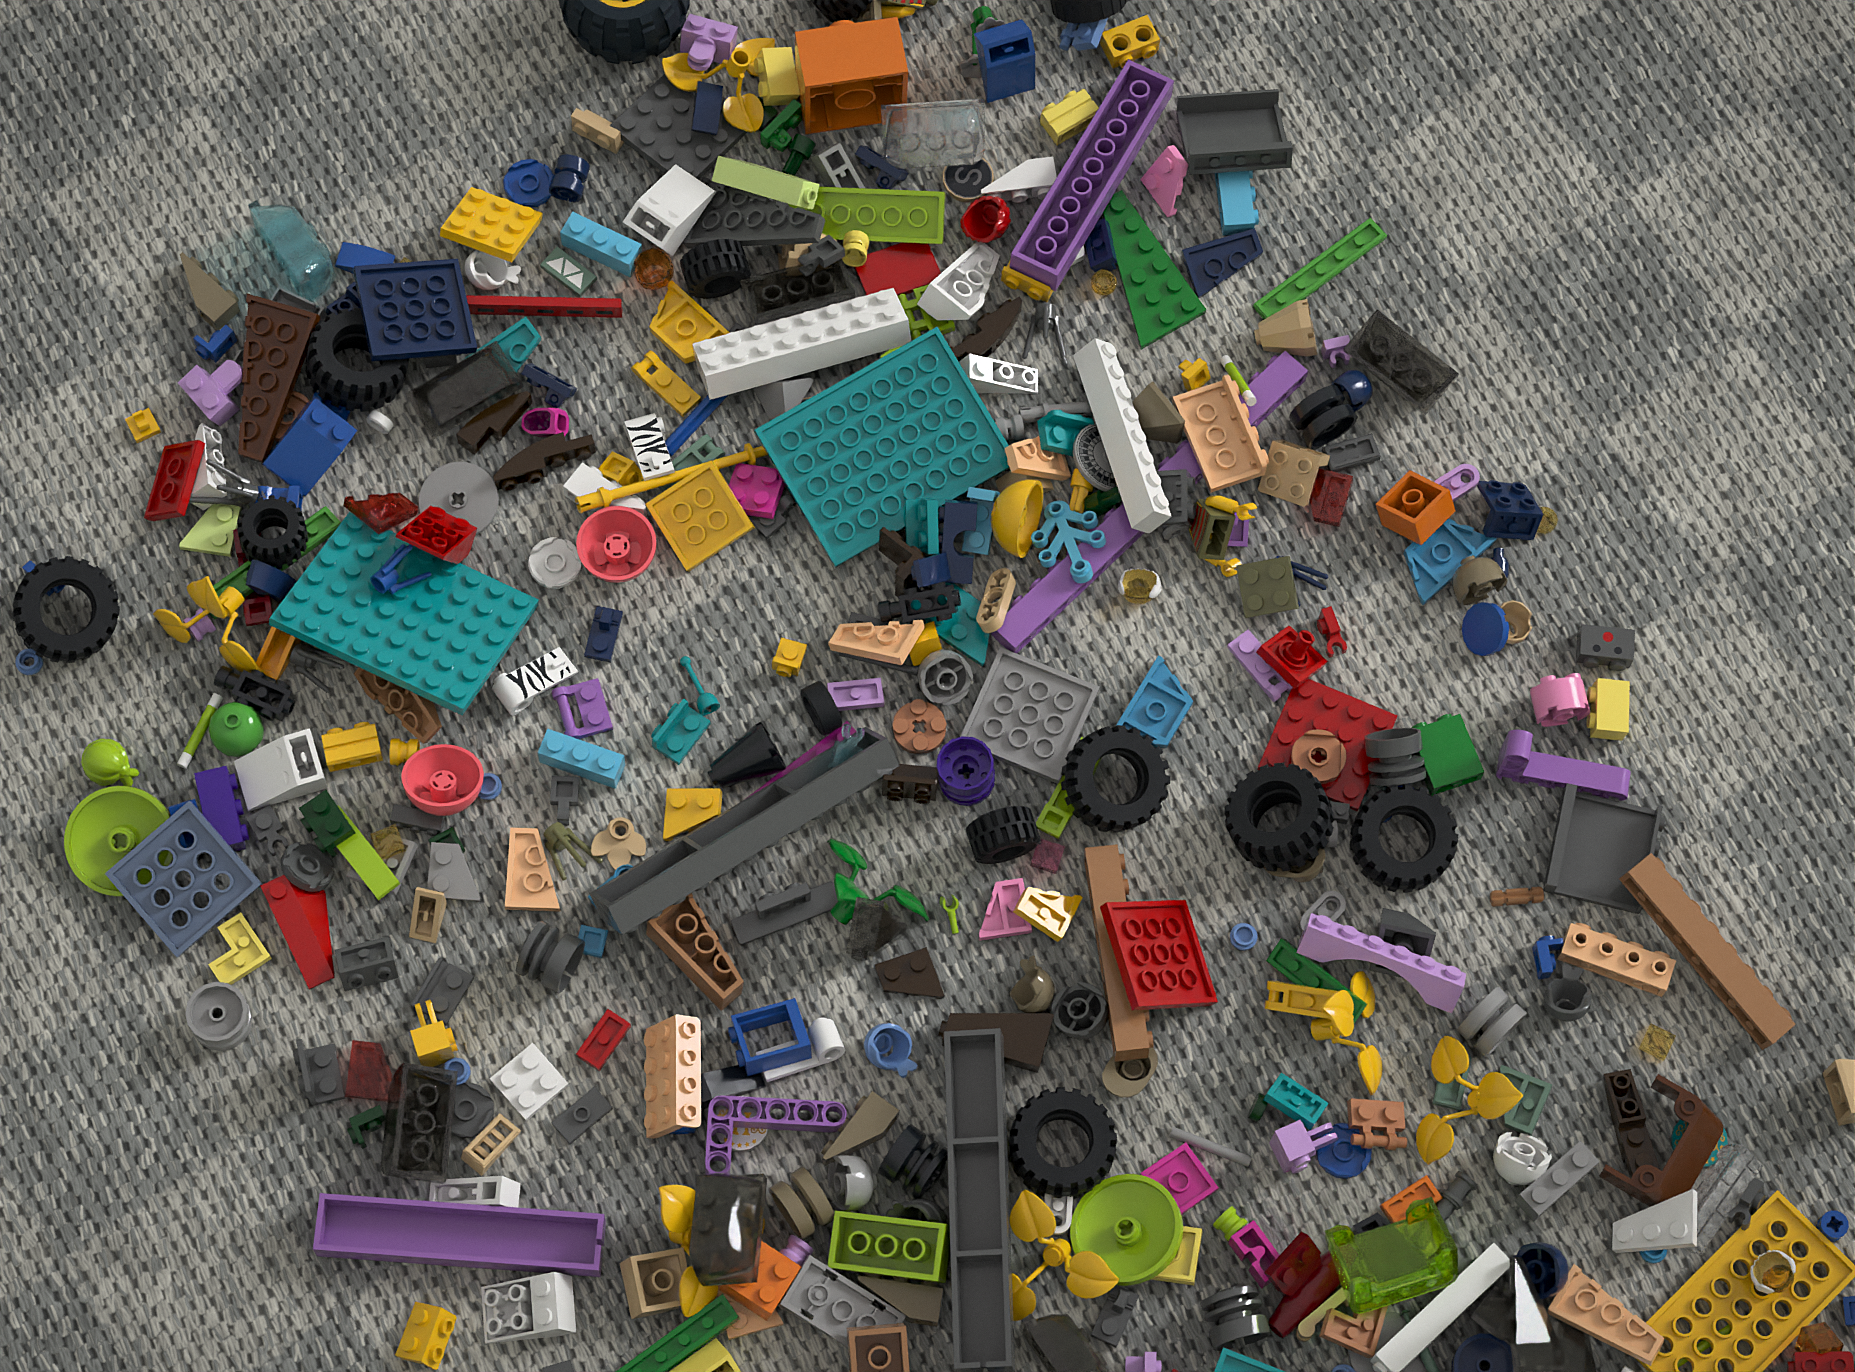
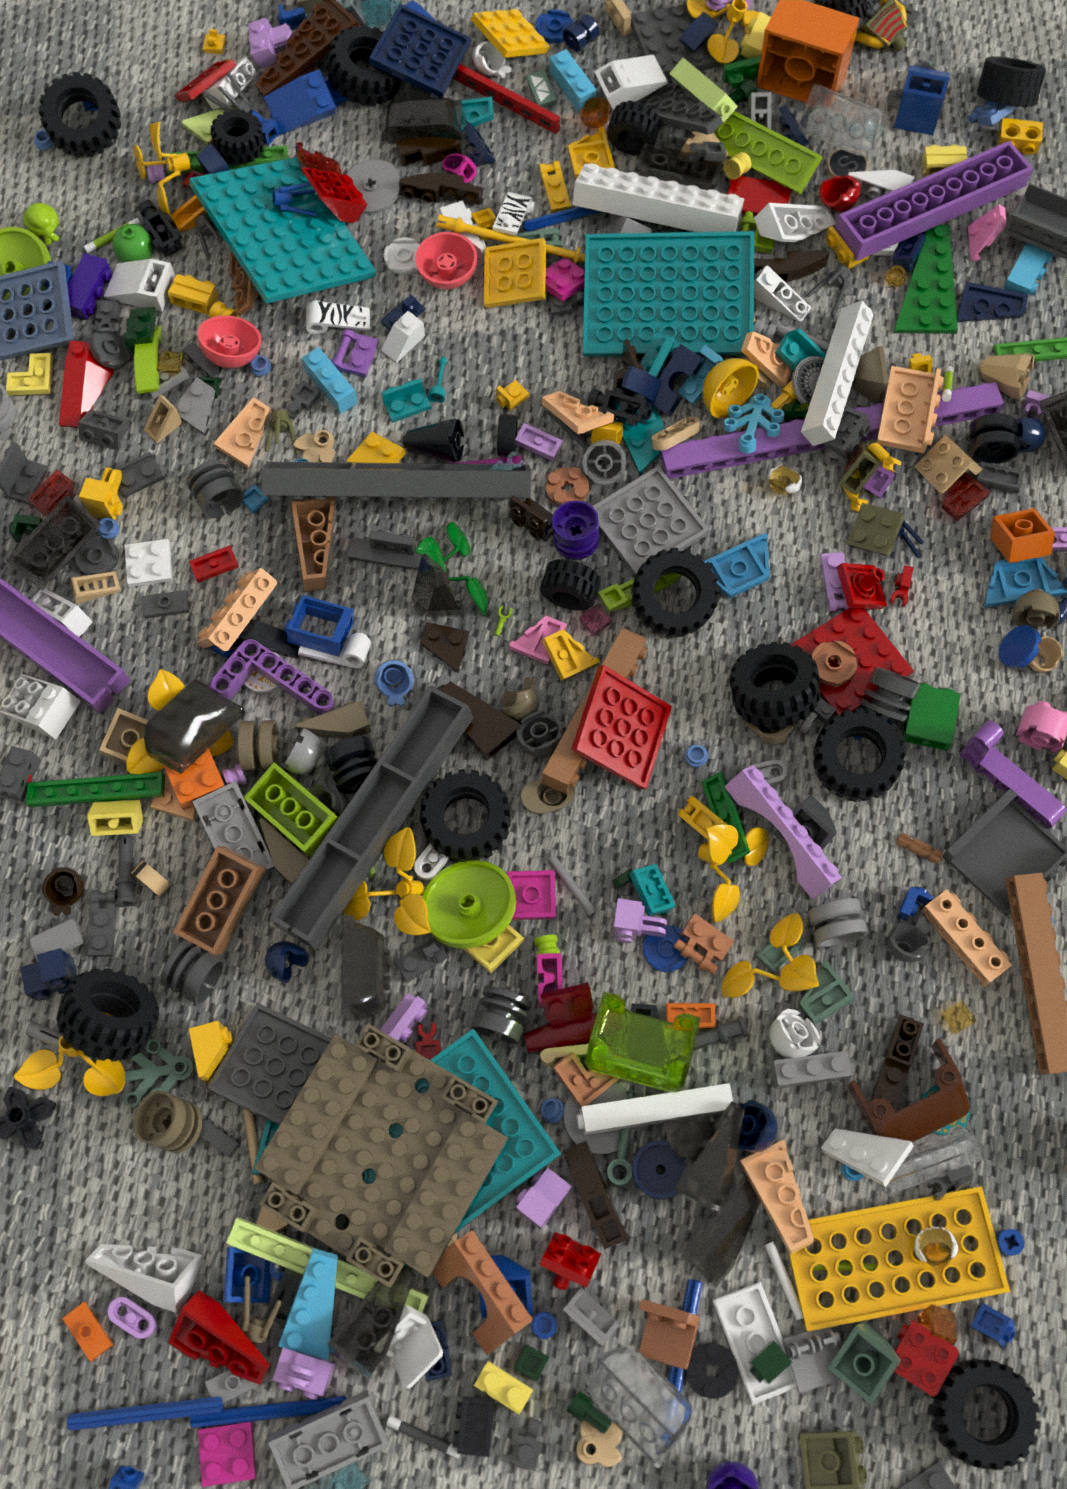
camera: 40 degrees right, 0 degrees up
(379, 422) = (356, 114): white tile -> none
(625, 661) = (403, 336): none -> white slope

